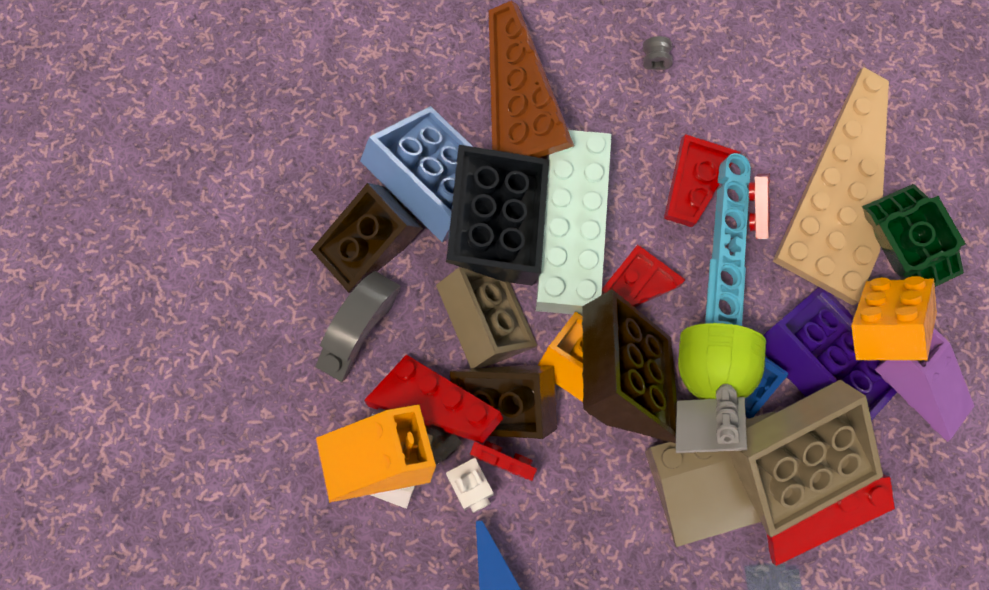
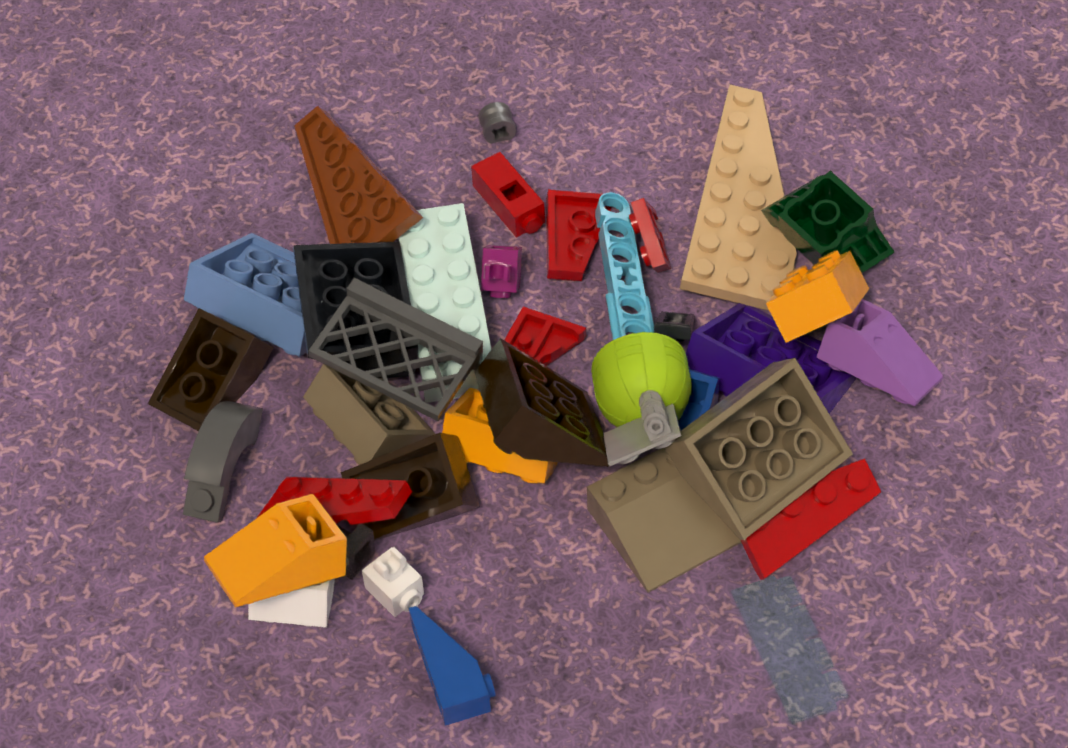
camera: 10 degrees left, 20 degrees down
(491, 454) = (424, 545): red wing -> none
(538, 256) = (407, 322): none -> dark grey fence
(628, 204) = (501, 270): none -> magenta brick
(651, 129) = (508, 195): none -> red brick
(761, 302) = (675, 325): none -> black plate

